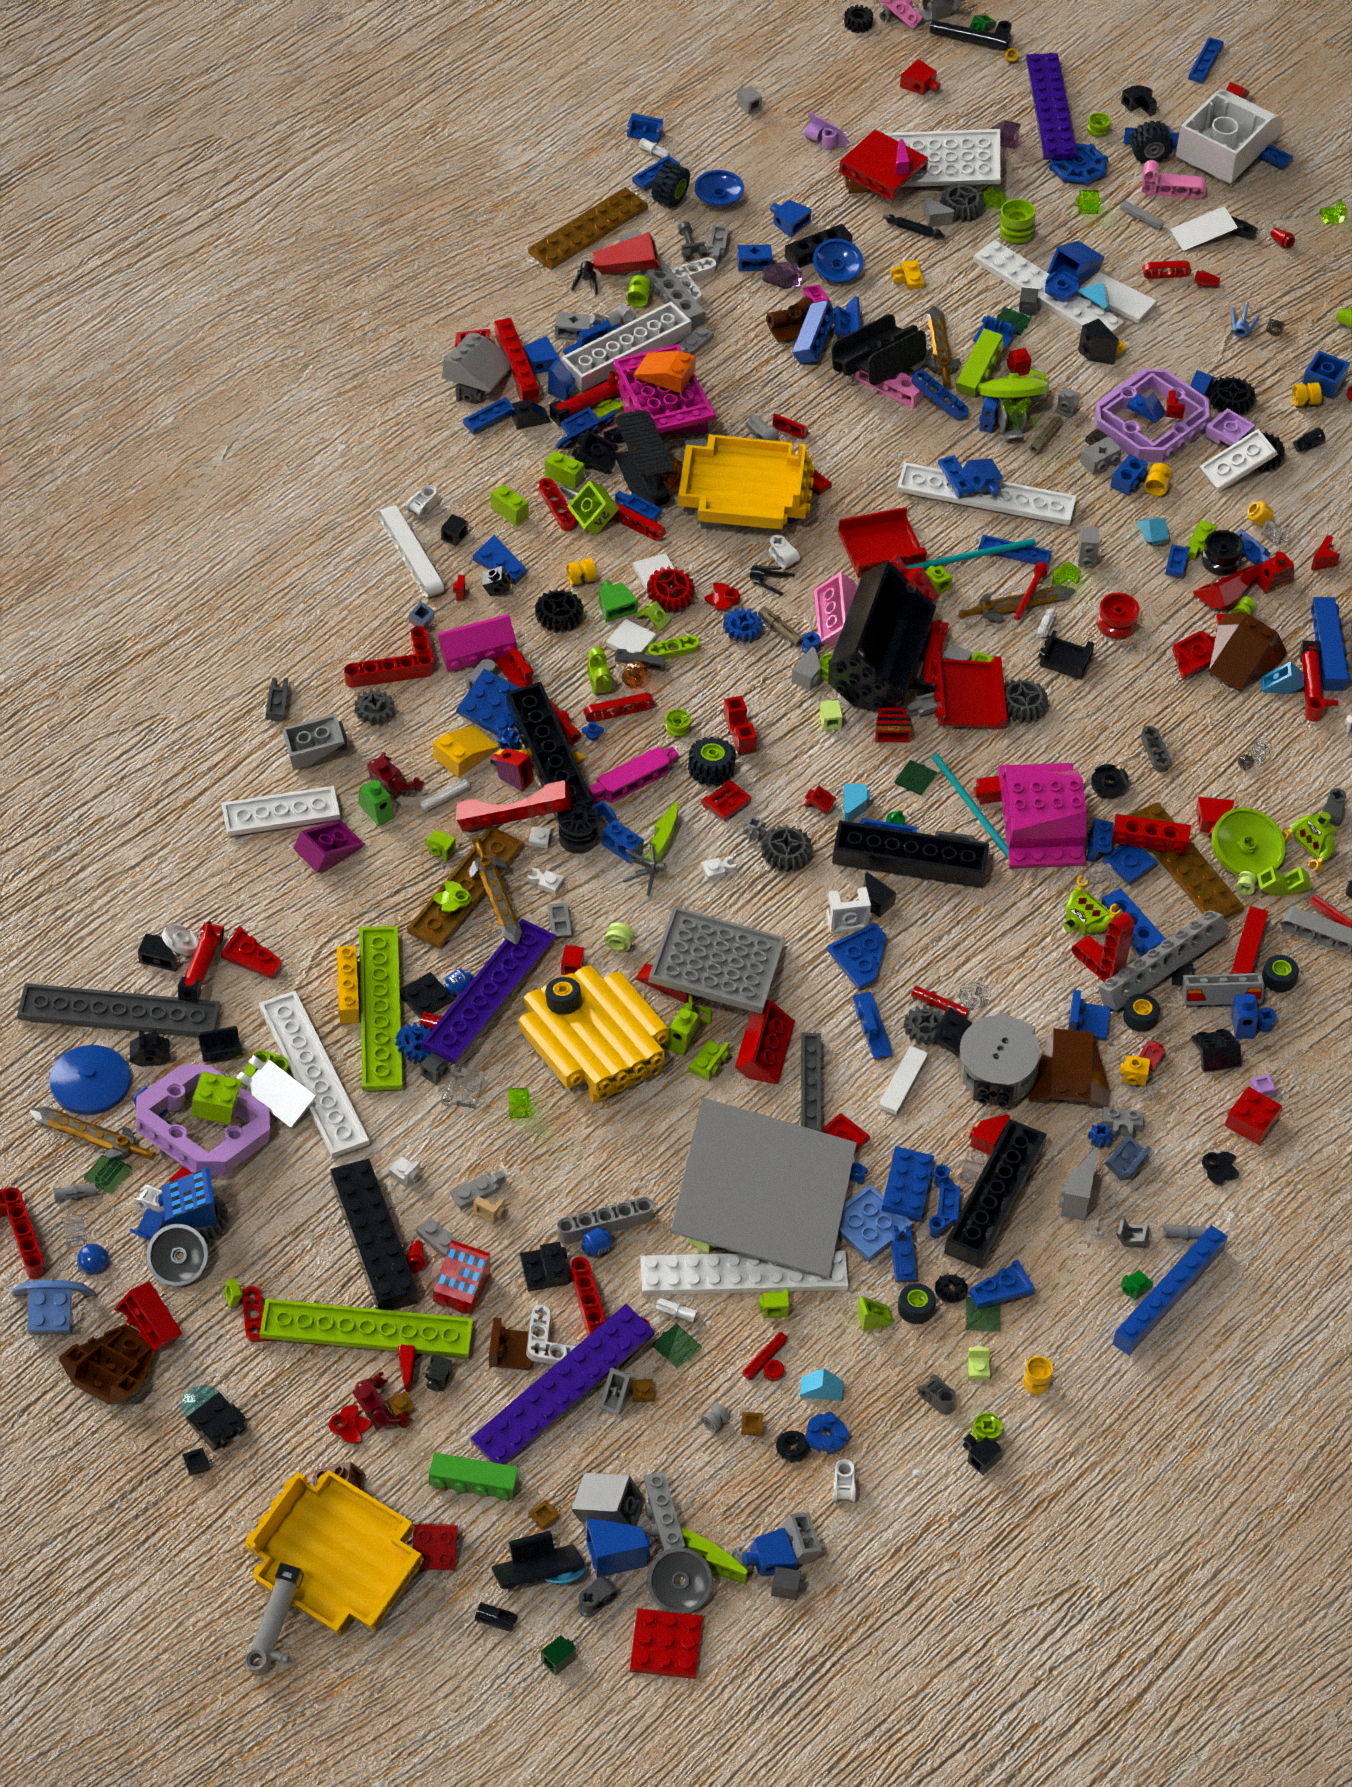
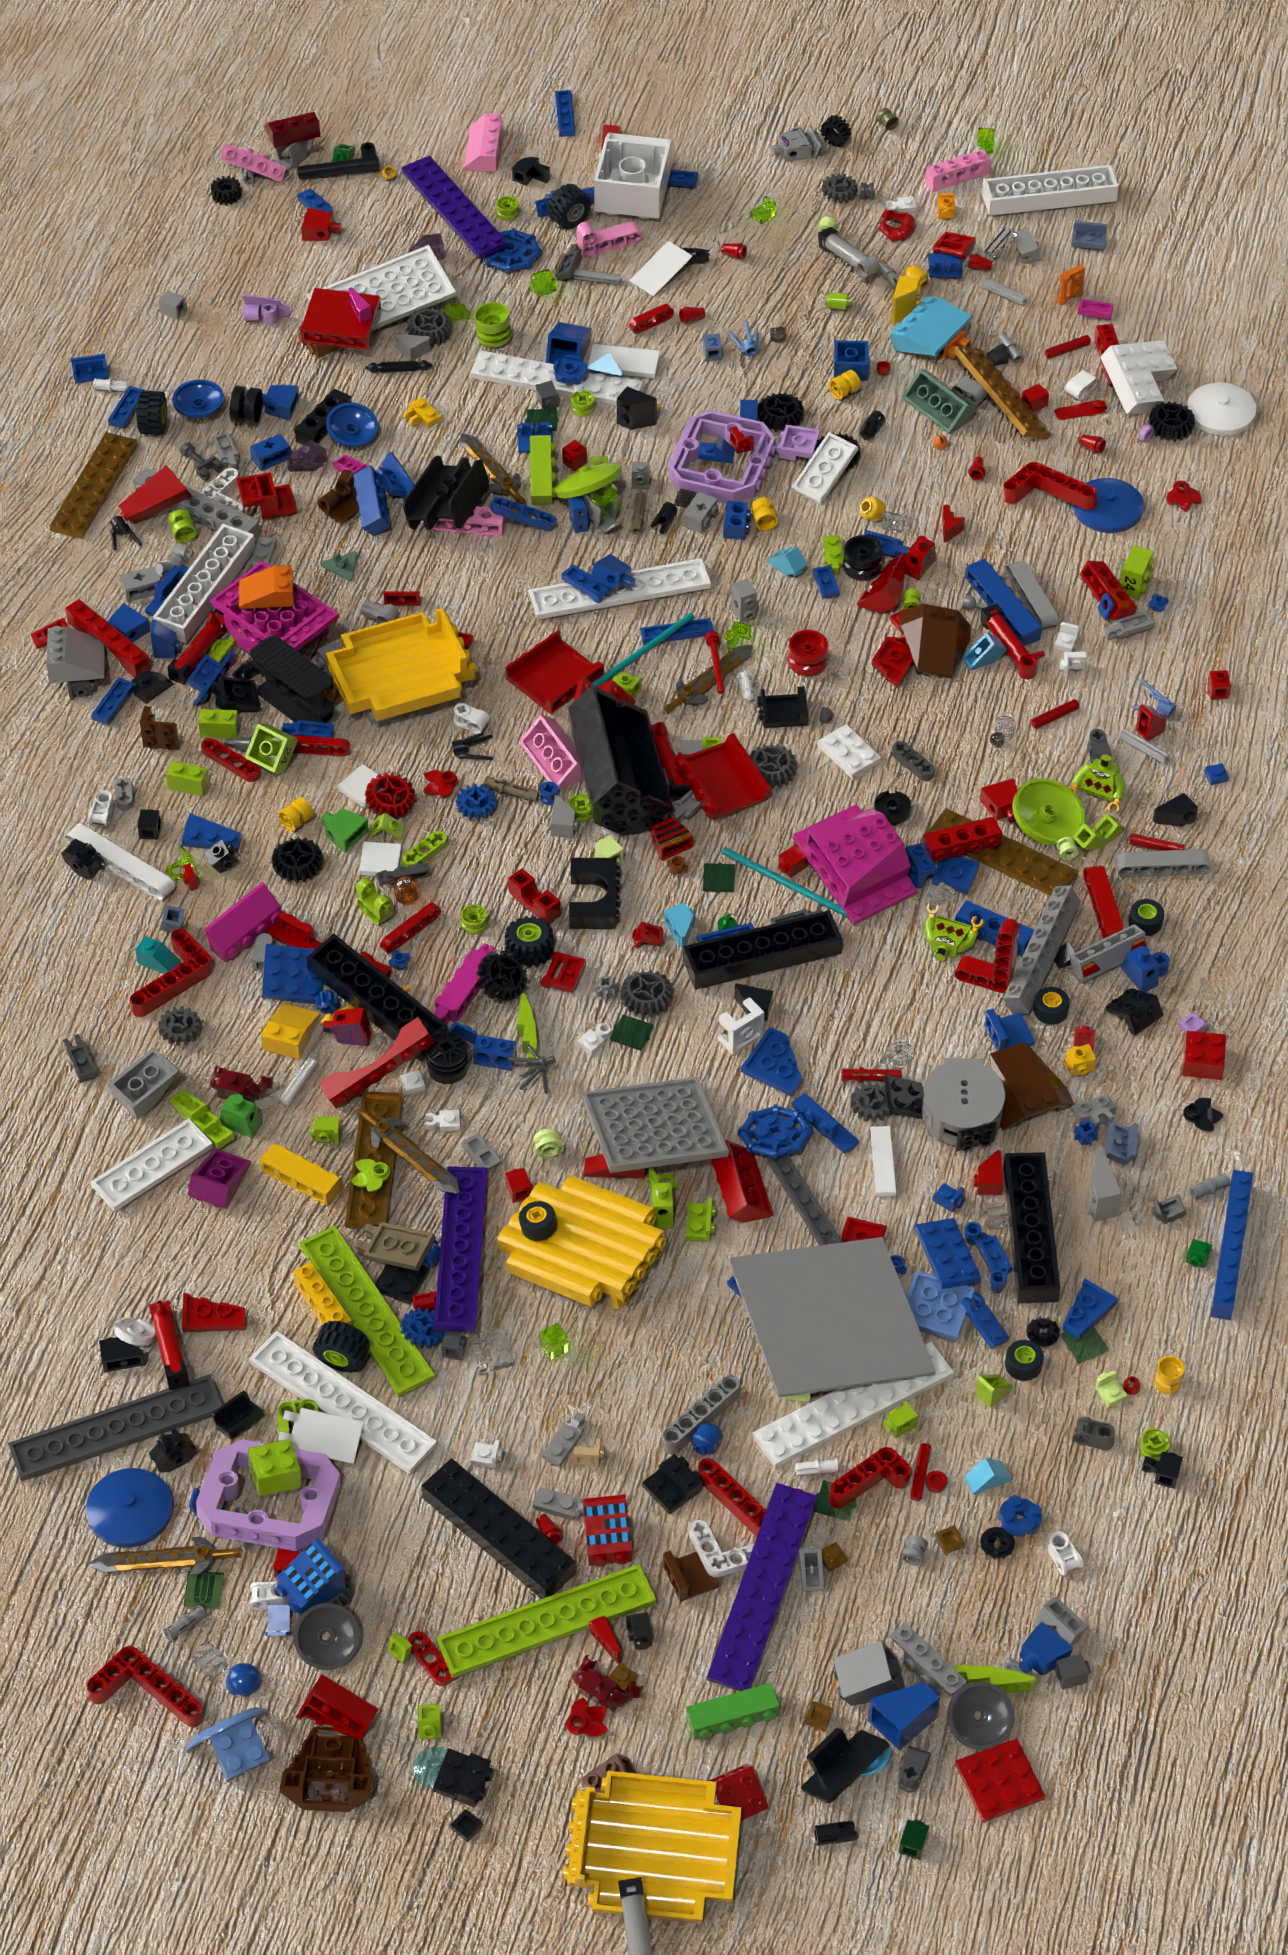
camera: 25 degrees left, 0 degrees up
(218, 1363) = (429, 1721): none -> lime bracket
(336, 1026) = (341, 1346): none -> black wheel
(345, 791) = (198, 1113): none -> lime slope
(379, 535) = (82, 858): none -> black hinge
(390, 640) = (156, 955): none -> teal slope
(396, 871) = (300, 1174): none -> yellow brick
(436, 964) = (395, 1245): none -> dark tan tile
(446, 495) = (127, 793): none -> light grey beam
(466, 571) = (185, 858): none -> clear neon green bracket
(505, 456) = (156, 733): none -> reddish brown bracket
(668, 765) = (504, 987): none -> black gear
(684, 1338) = (844, 1491): none -> red beam
(723, 289) = (261, 491): none -> red bracket
(754, 876) = (631, 1032): none -> clear green piece
(756, 209) = (246, 405): none -> black wheel
(757, 378) = (341, 565): none -> sand green piece
(794, 764) = (601, 913): none -> black arch
(831, 1016) = (768, 1143): none -> blue plate
(884, 751) = (677, 865): none -> dark orange plate
(930, 56) = (313, 200): none -> blue hinge
(942, 1137) = (949, 1197): none -> blue bracket
(1003, 1372) = (1136, 1386): none -> red hinge
(1057, 320) = (582, 403): none -> lime wheel
(1067, 447) = (665, 516): none -> black hinge
(1101, 676) = (826, 715): none -> dark grey hinge
(1102, 717) = (849, 751): none -> white plate
(1115, 61) = (484, 143): none -> bright pink slope
(1123, 192) = (568, 263): none -> dark grey hinge
(1206, 315) = (712, 347): none -> sand blue brick
(1298, 631) = (970, 602): none -> light grey hinge
(1314, 761) = (1055, 713): none -> red axle

